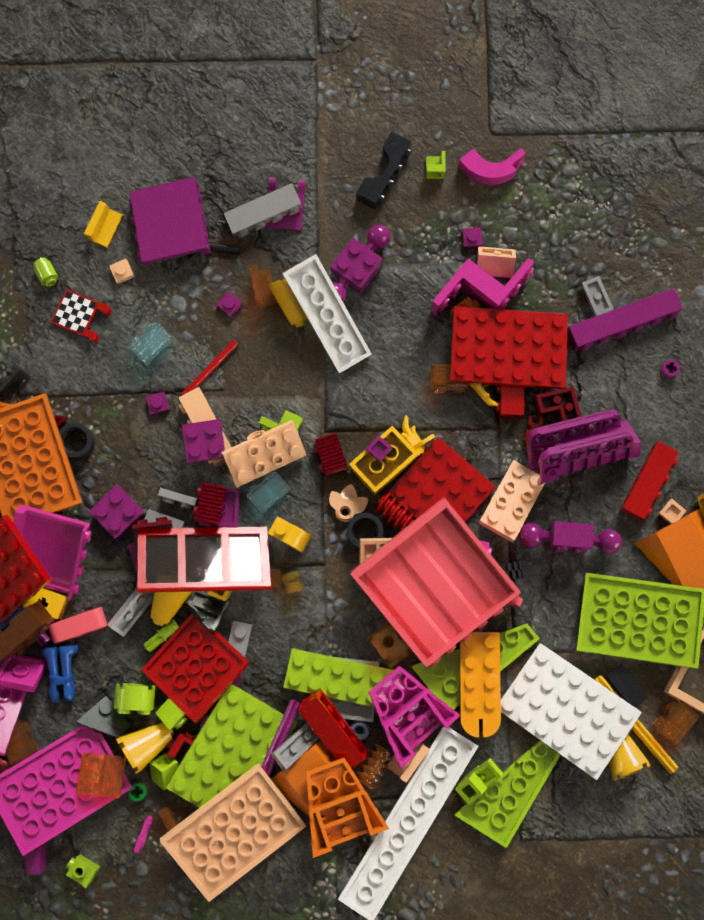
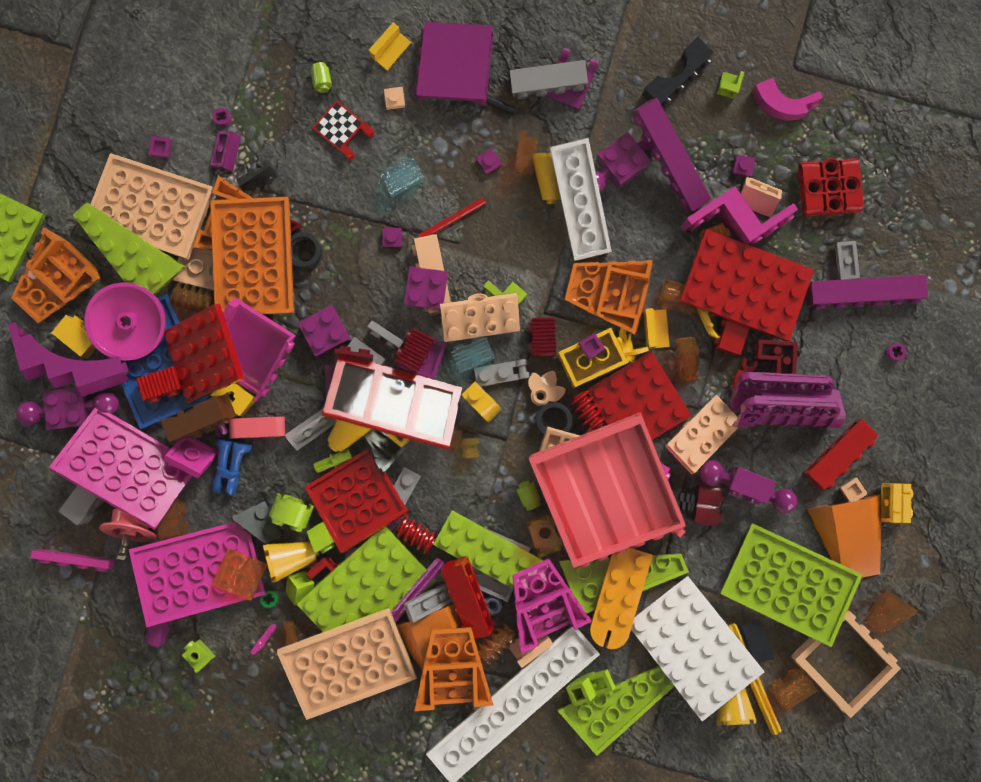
camera: 15 degrees right, 5 degrees up
(263, 683) = (415, 534): none -> red piece
(300, 501) = (501, 373): none -> light grey plate
(362, 611) = (528, 495): none -> lime brick
(382, 391) = (611, 290): none -> orange wedge
(400, 247) = (671, 155): none -> magenta brick
(436, 414) = (656, 328): none -> yellow panel
(474, 434) = (687, 359): none -> clear orange slope
(538, 567) = (707, 505): none -> dark red brick
(576, 240) = (844, 199): none -> red connector

